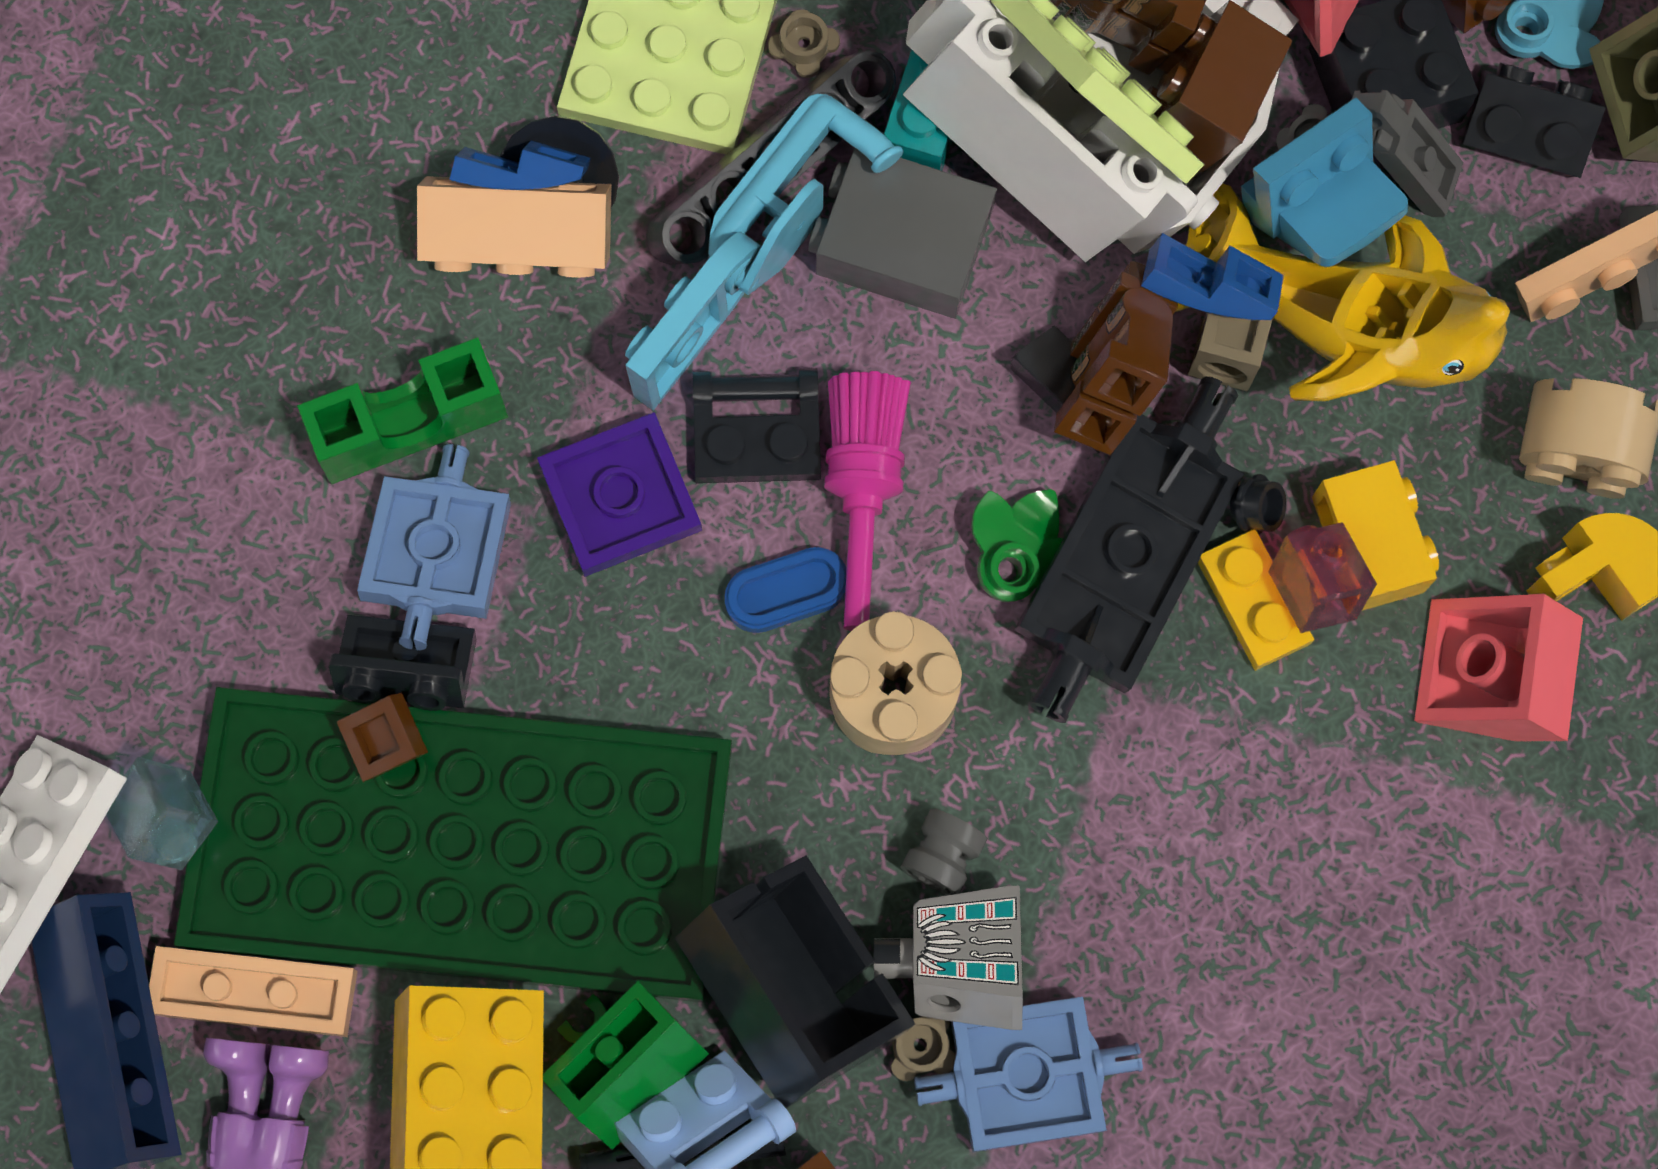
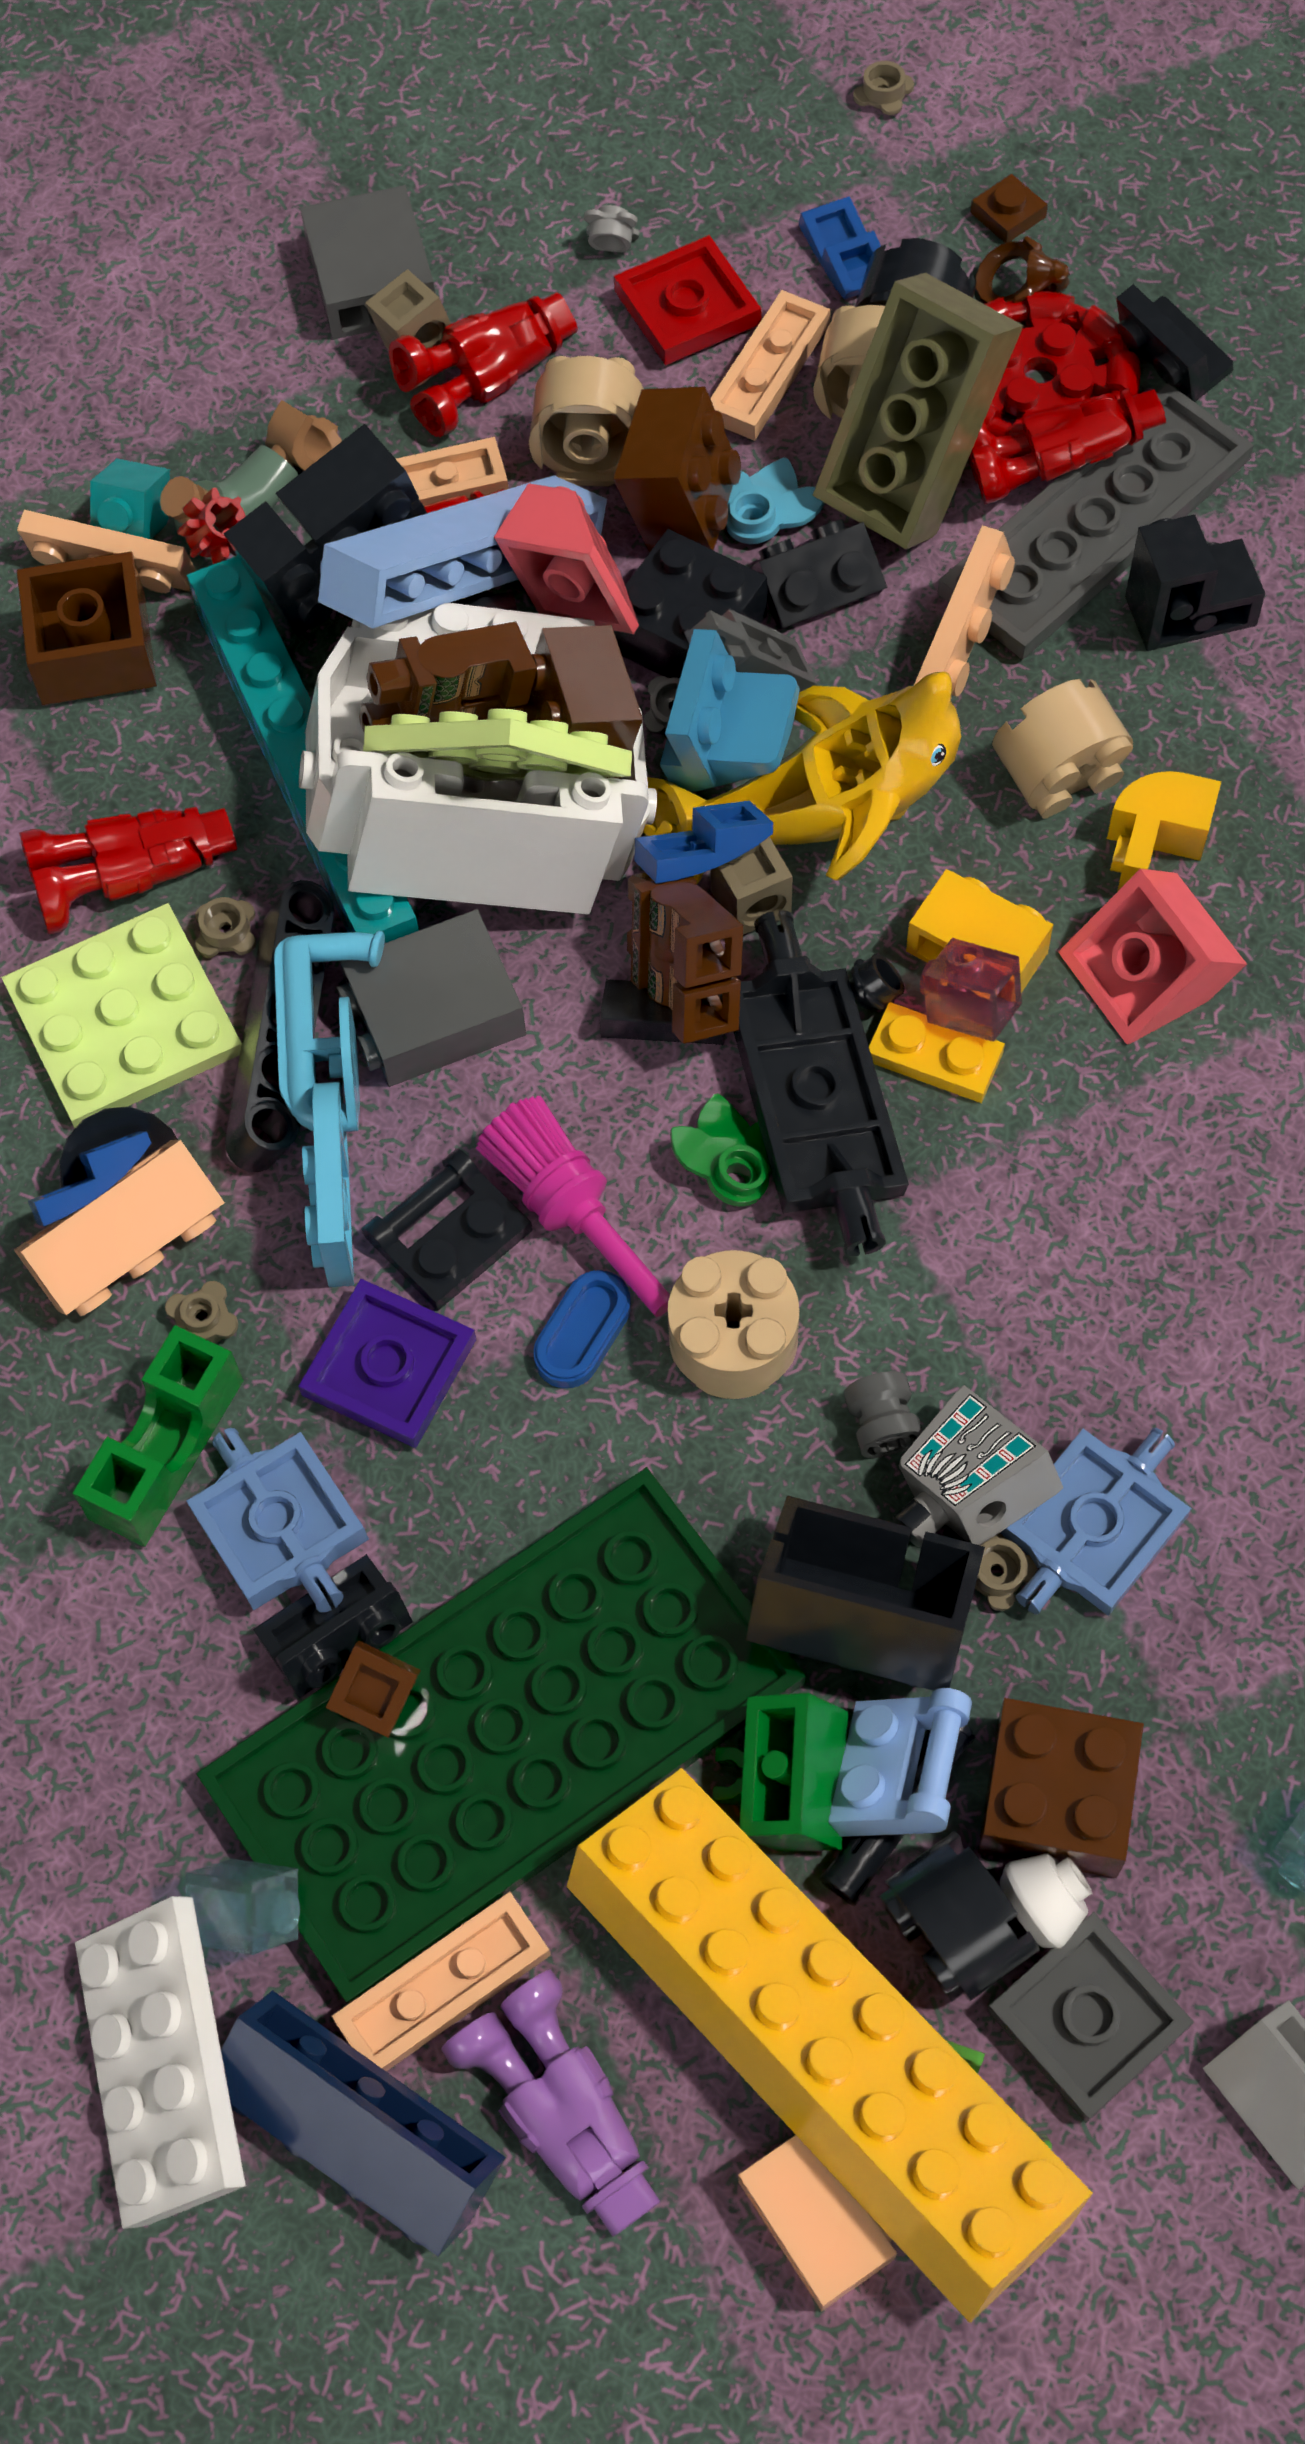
camera: 35 degrees left, 10 degrees down
(524, 358) = (210, 1299): none -> dark tan plate

